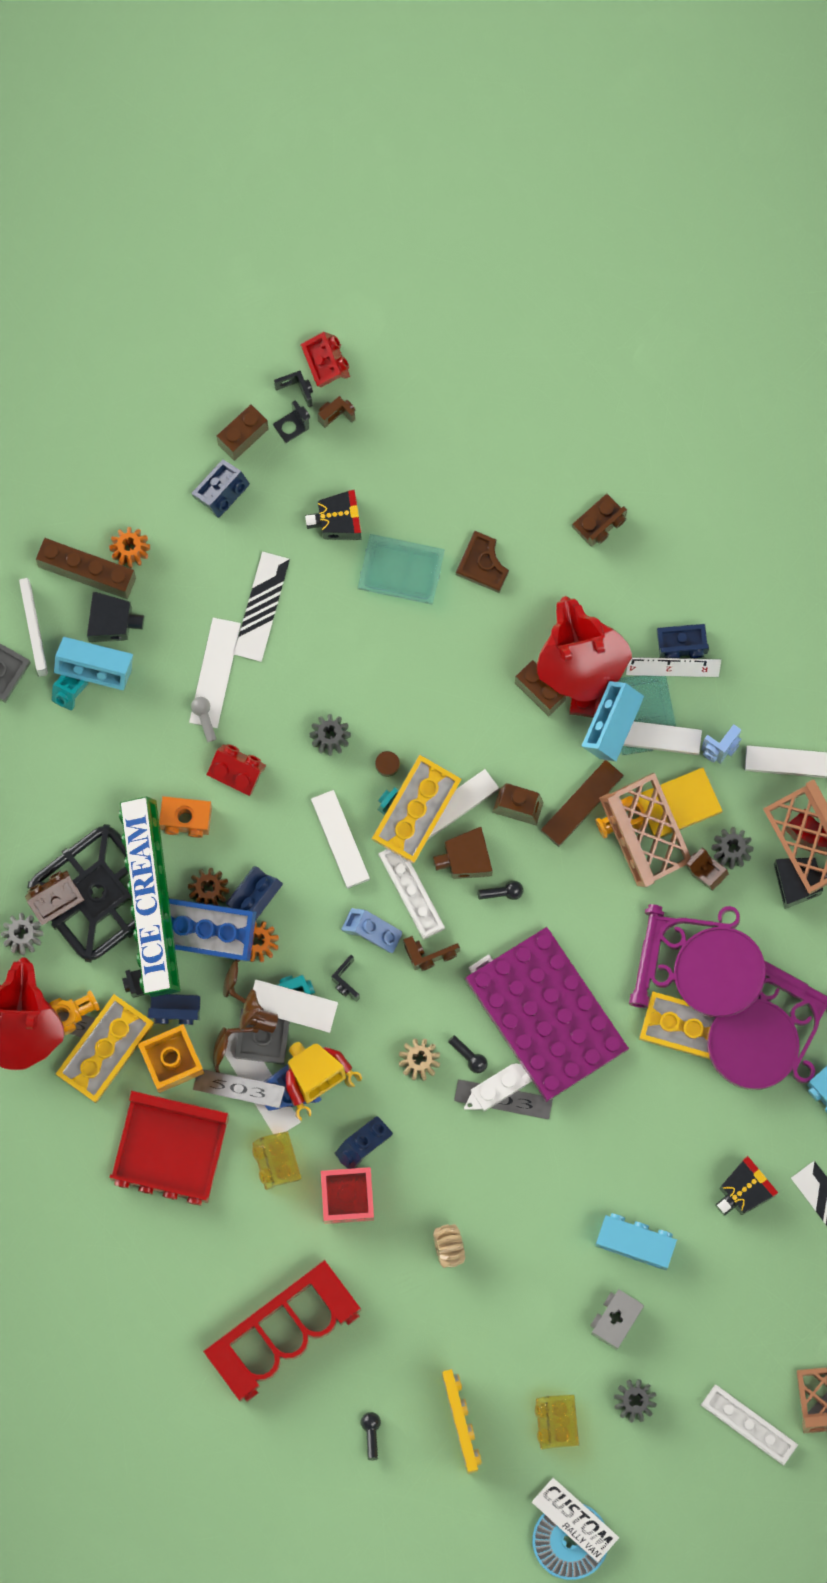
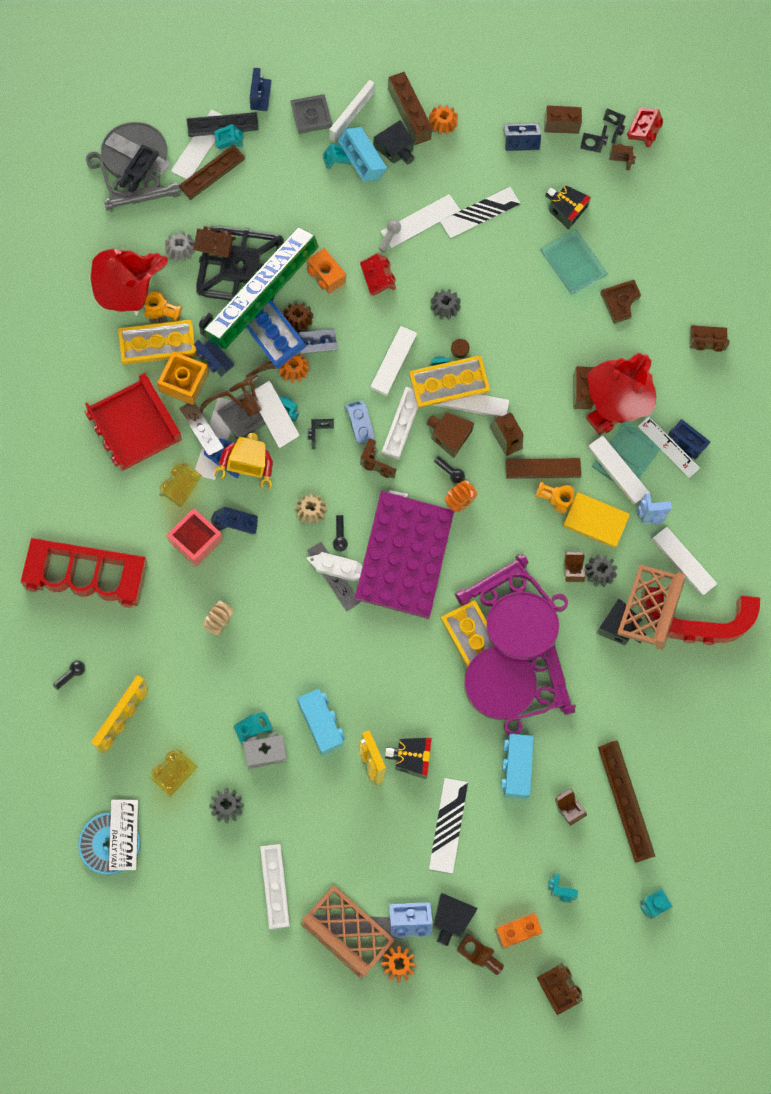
camera: 40 degrees right, 5 degrees down
(541, 908) = (460, 496): none -> orange gear
(581, 1310) = (251, 726): none -> teal bracket
(612, 721) = (604, 437): medium azure brick -> none
(631, 843) = (548, 504): nougat fence -> none
(727, 1230) = (370, 754): none -> yellow piece

